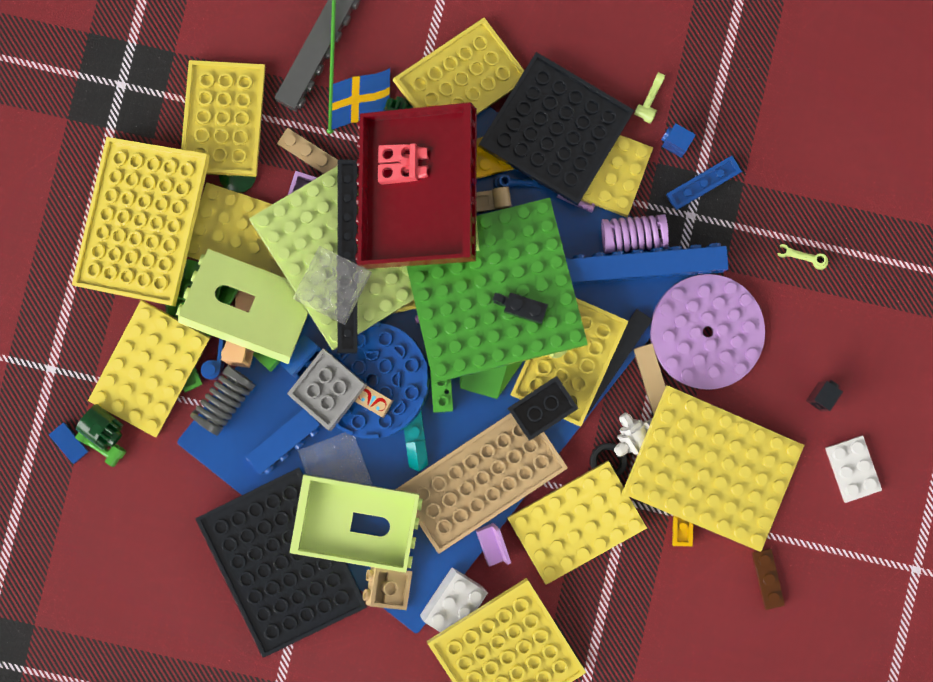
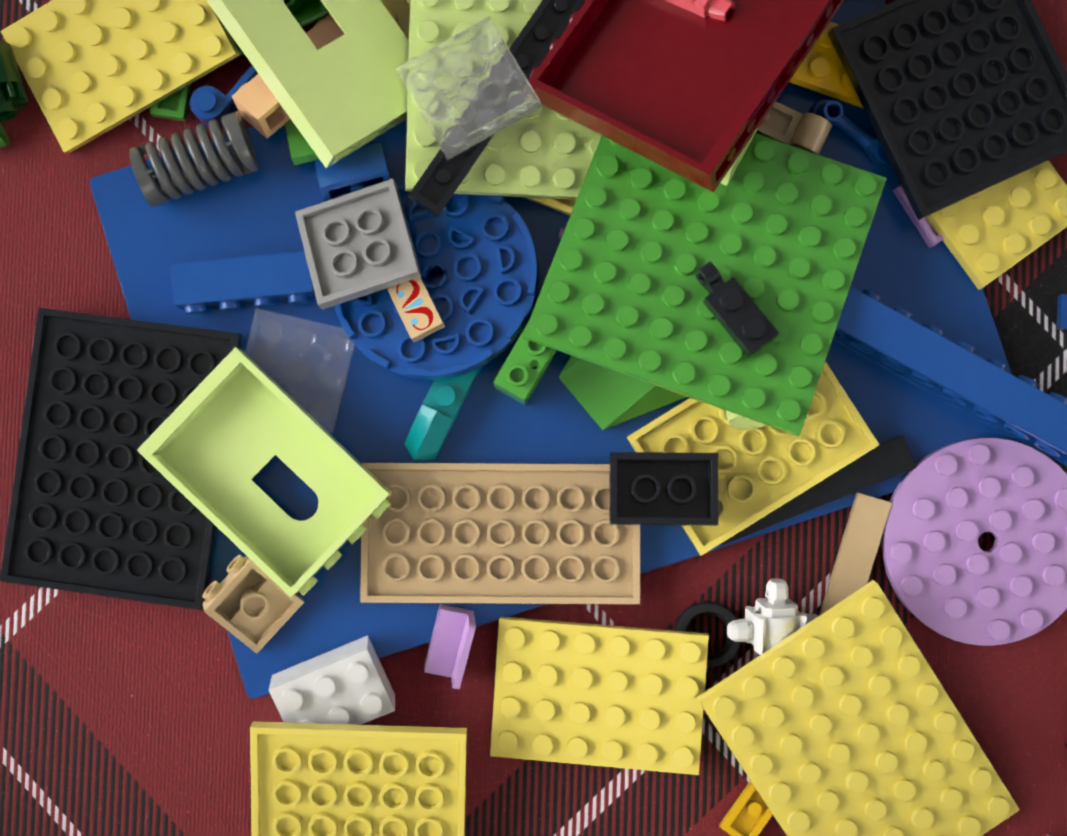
camera: 40 degrees right, 0 degrees up
(632, 227) = (1006, 344): lavender piece -> none

